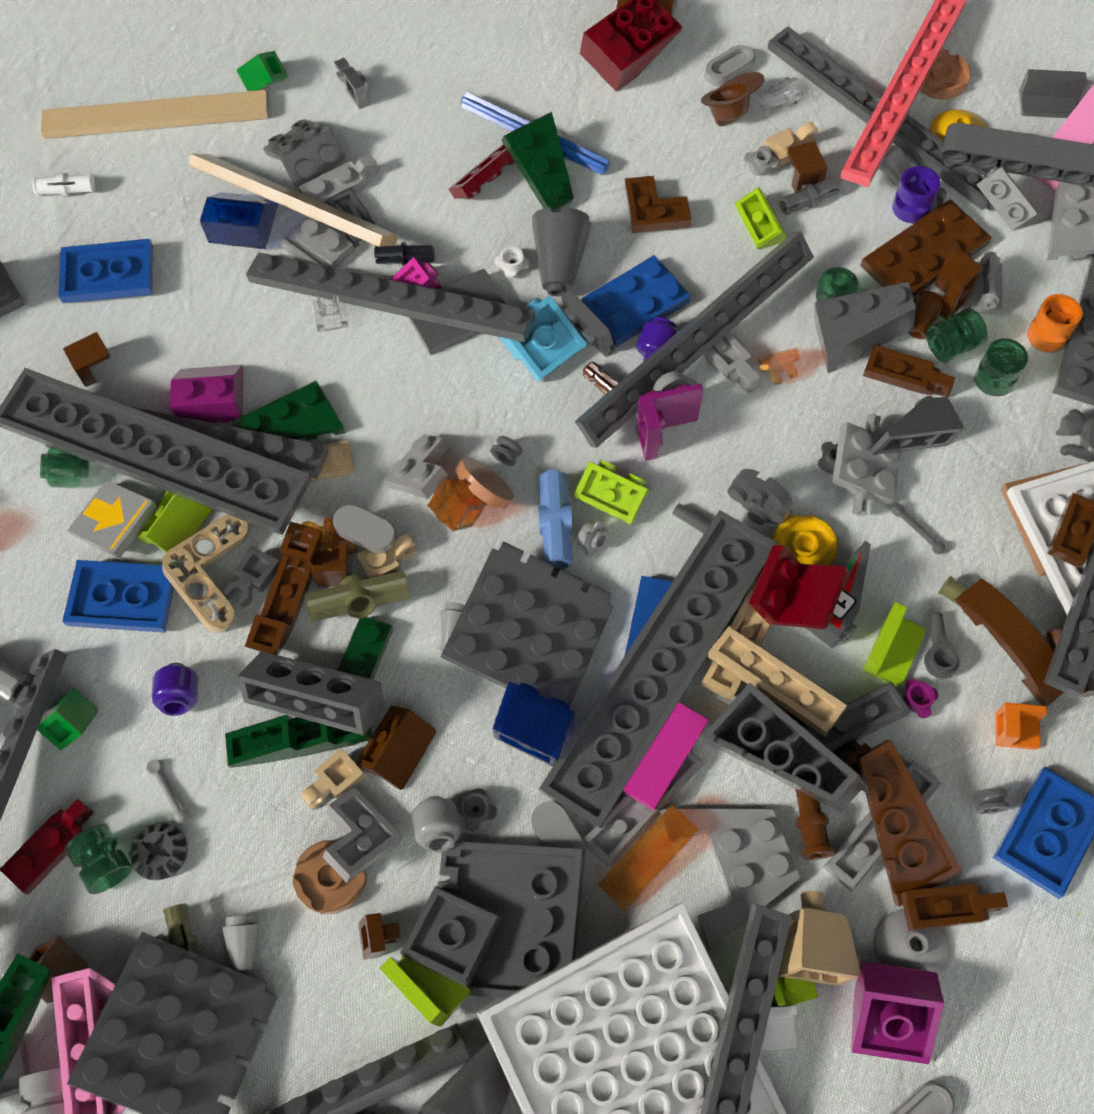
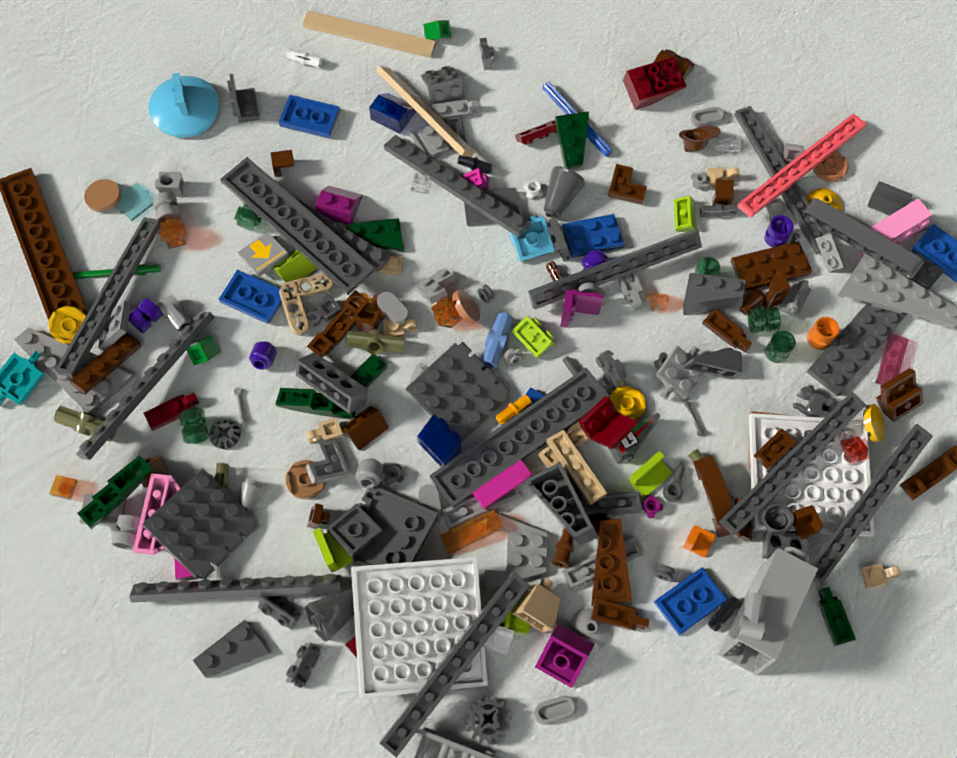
camera: 15 degrees right, 0 degrees up
(631, 623) = (513, 409): none -> light orange axle
(880, 72) = (792, 152): none -> light grey tile

